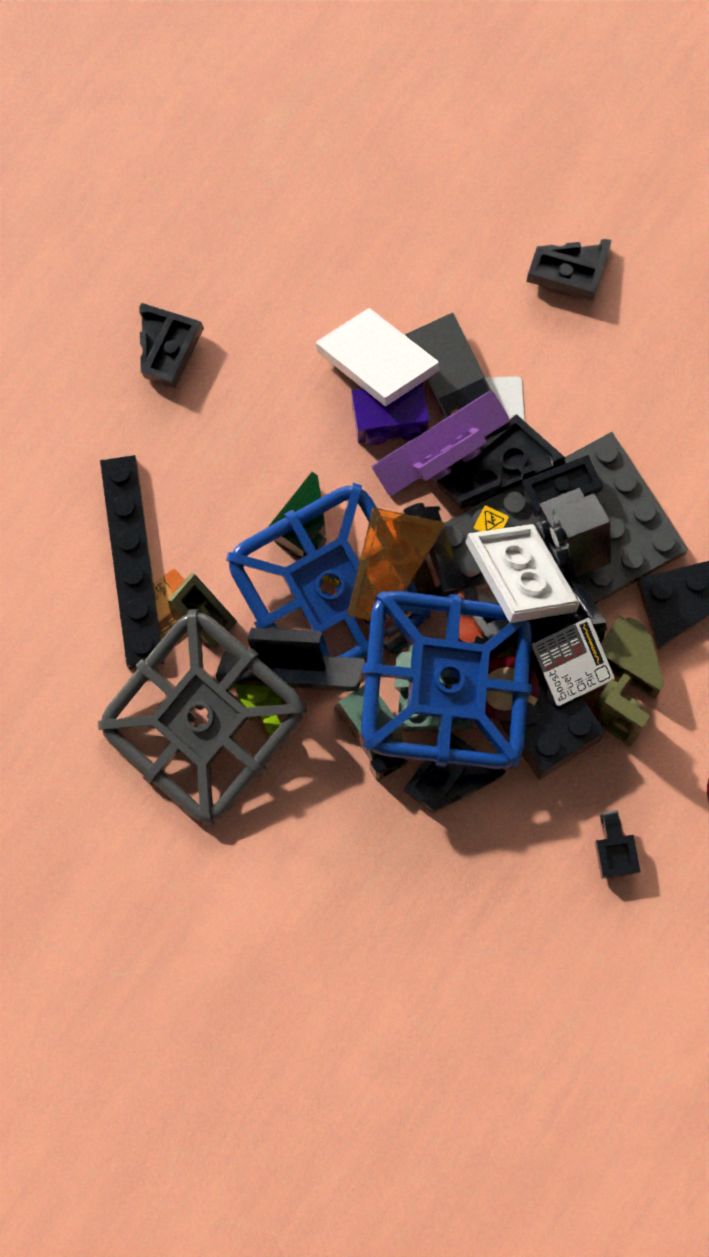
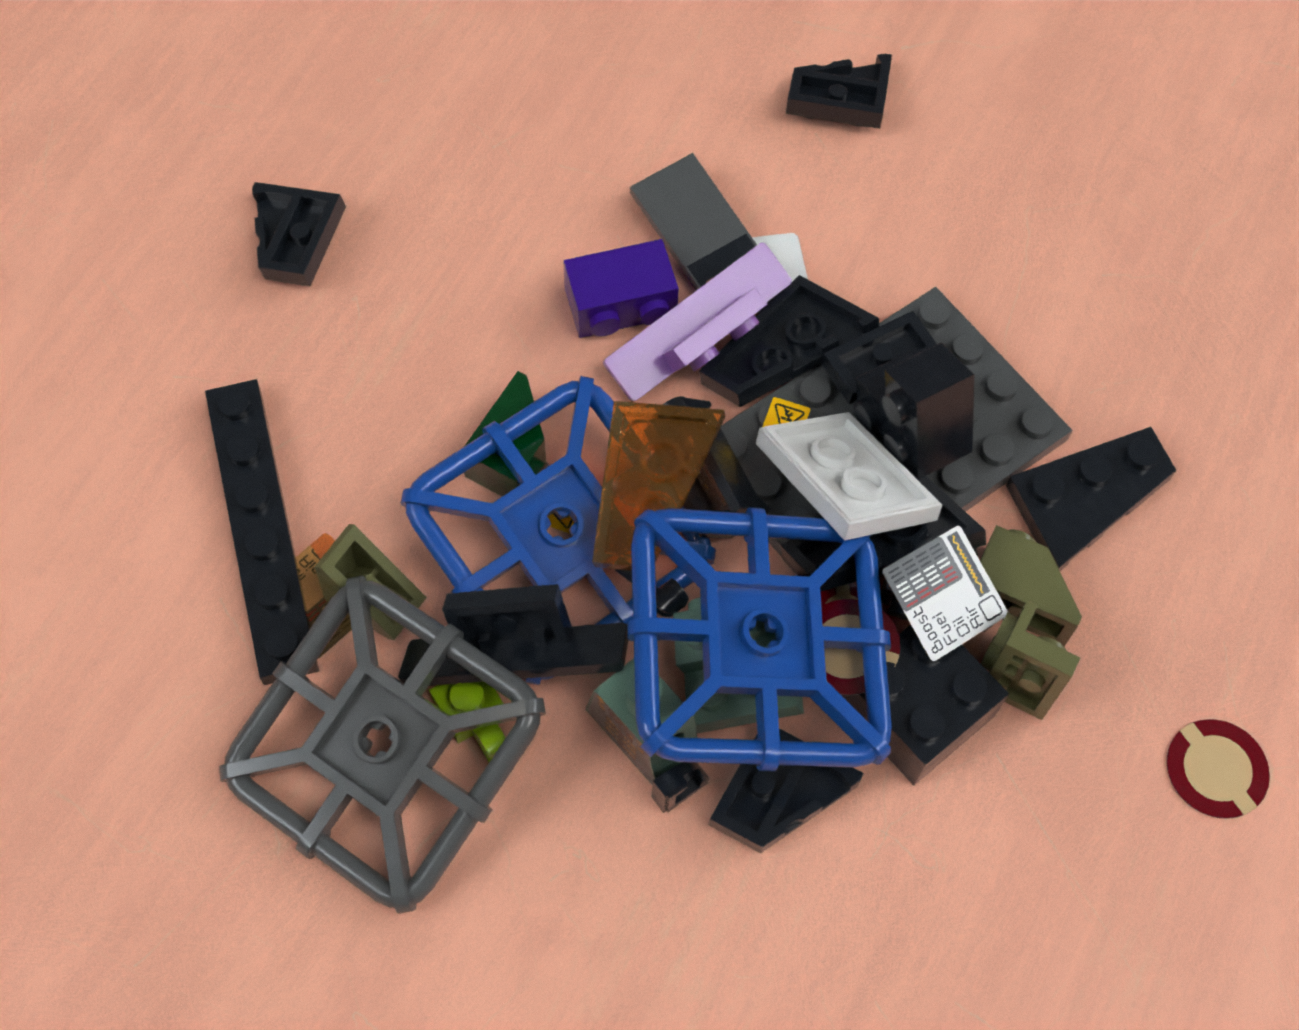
camera: 10 degrees left, 10 degrees down
(377, 356) = (595, 216): white tile -> none
(615, 853) = (1053, 881): black plate -> none

